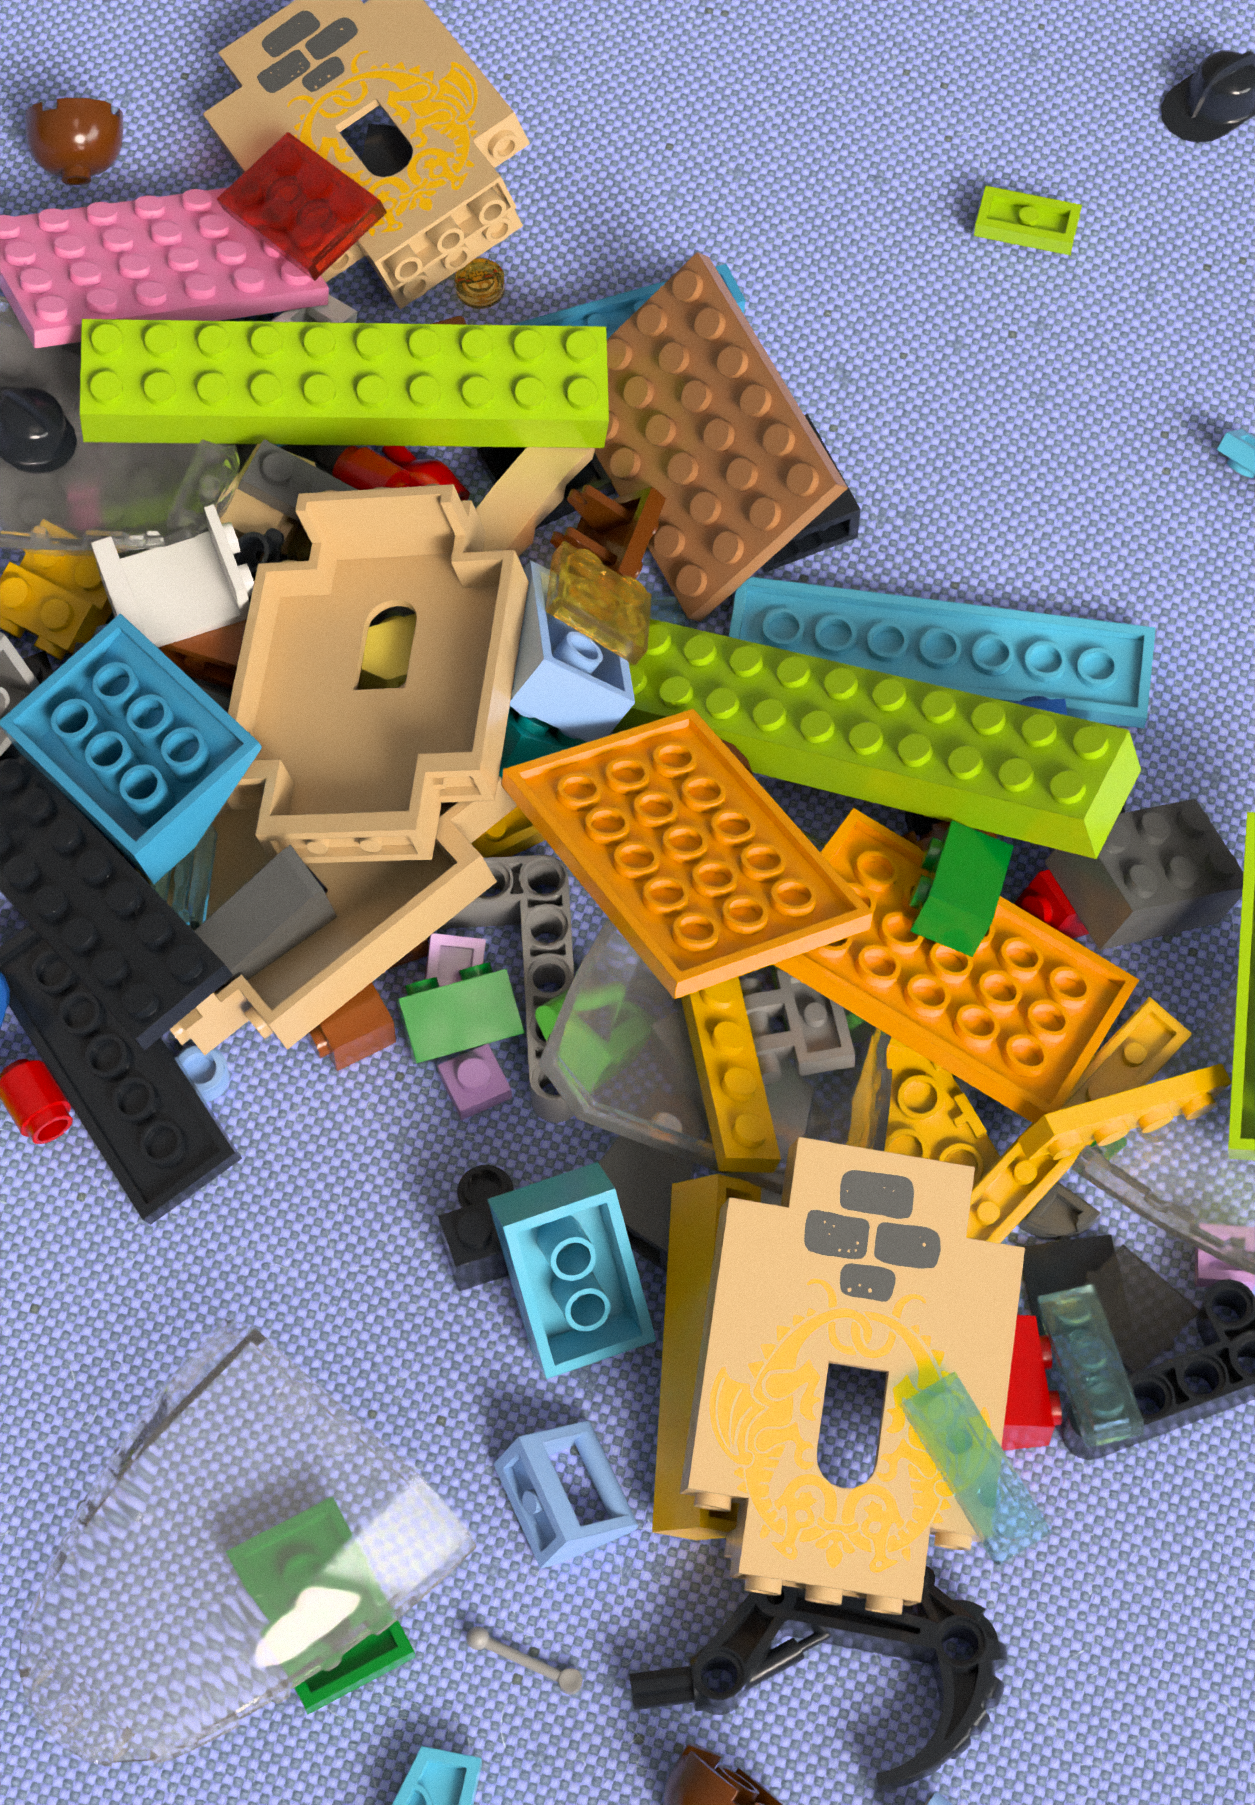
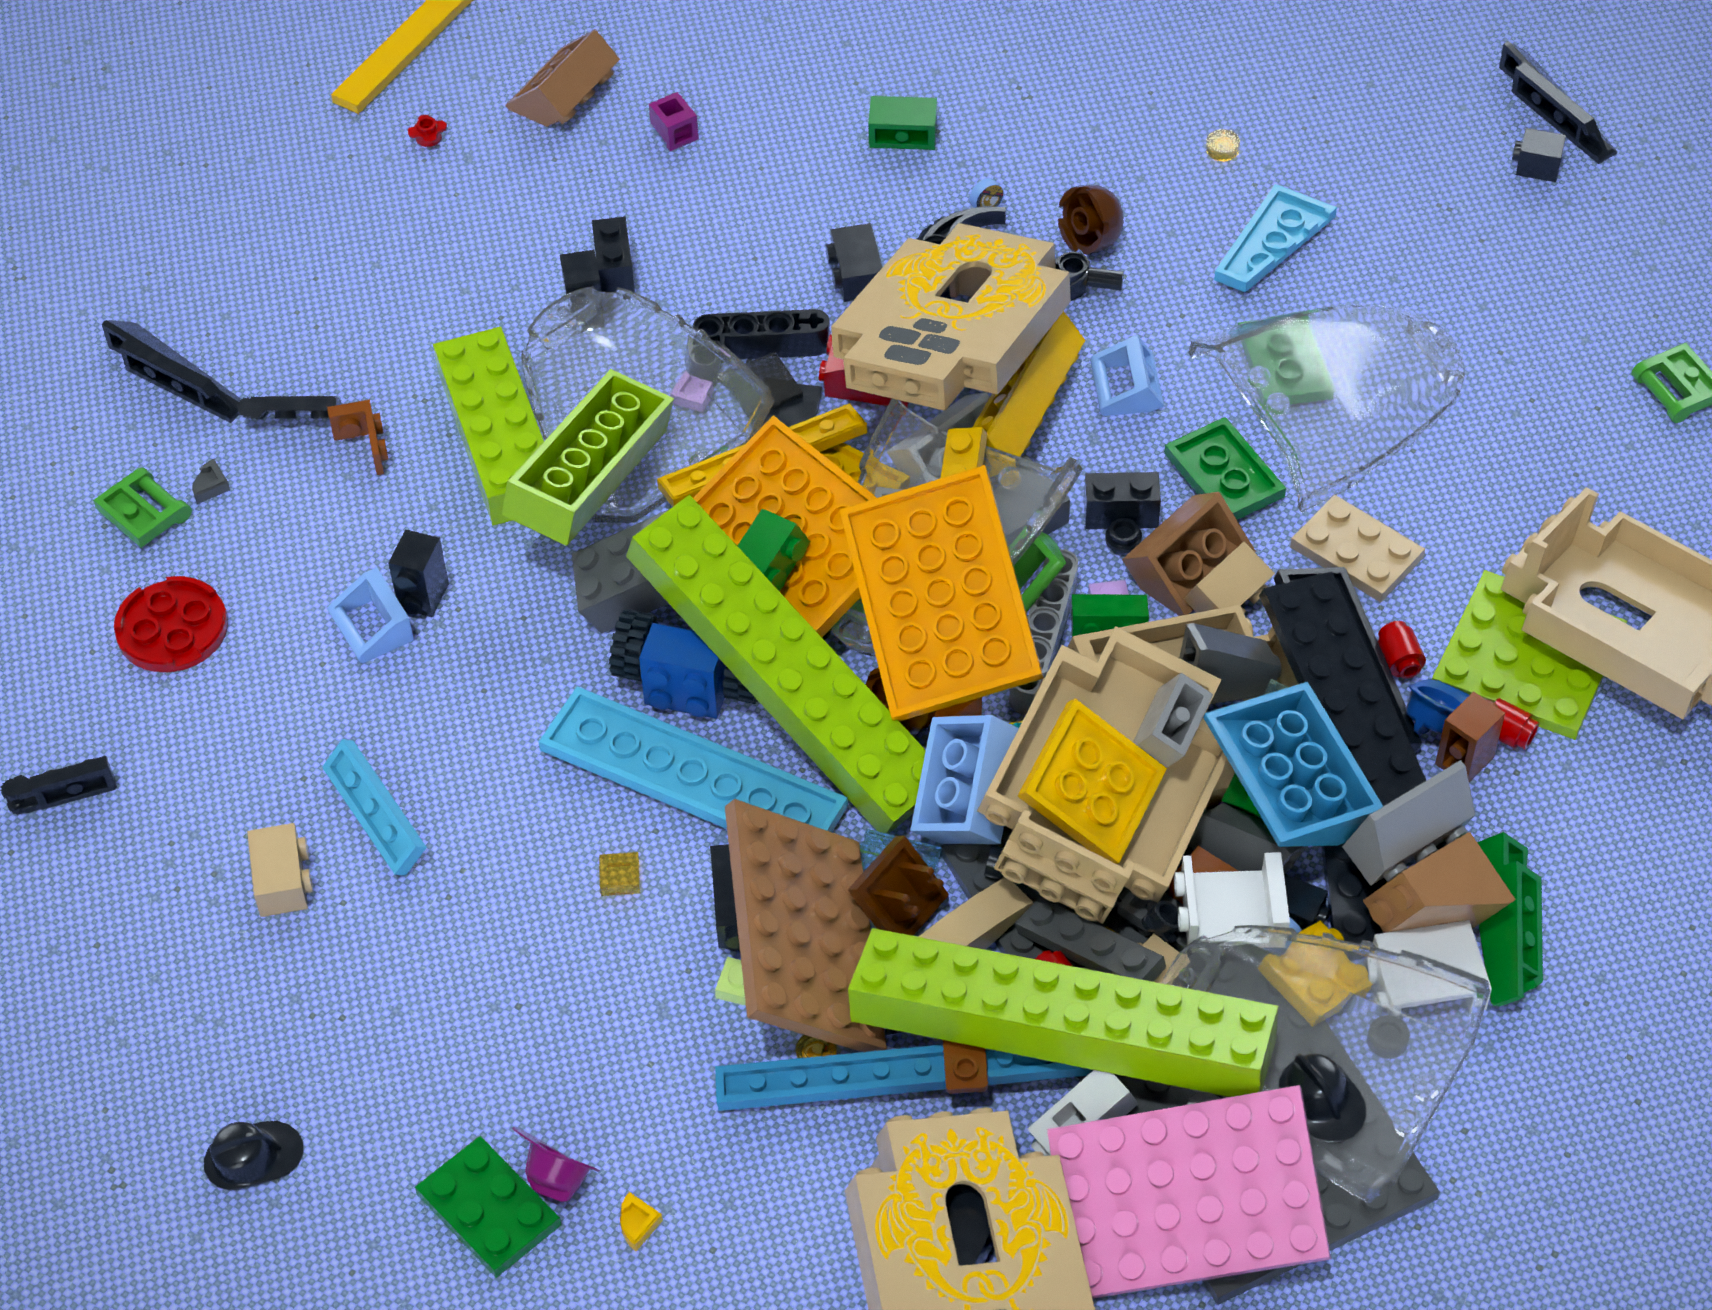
camera: 160 degrees left, 10 degrees down
(133, 1280) = (1367, 548): none -> tan plate
(301, 206) = (1050, 1192): clear red plate -> none
(303, 1126) = (1232, 582): none -> tan brick
(305, 741) = (1173, 719): none -> light grey brick
(366, 1350) = (1224, 462): none -> green plate
(380, 1177) = (1185, 550): none -> medium nougat slope
(385, 626) = (1092, 782): none -> yellow plate
(569, 1680) = (1153, 305): light grey hinge -> none
(572, 1269) = (1092, 442): medium azure brick -> none
(599, 602) = (929, 803): clear yellow plate -> none
(761, 144) = (638, 1220): none -> yellow tile
(880, 155) = (552, 1171): none -> magenta piece
(931, 115) = (488, 1206): none -> green plate
(970, 509) = (619, 873): none -> clear yellow tile
(975, 1468) = (905, 253): clear light blue plate -> none
(1027, 220) = (462, 1079): lime plate -> none
(1086, 1595) = (854, 257): none -> black brick
(1090, 1366) = (804, 341): clear light blue plate -> none
(1115, 1115) = (721, 430): yellow plate -> none

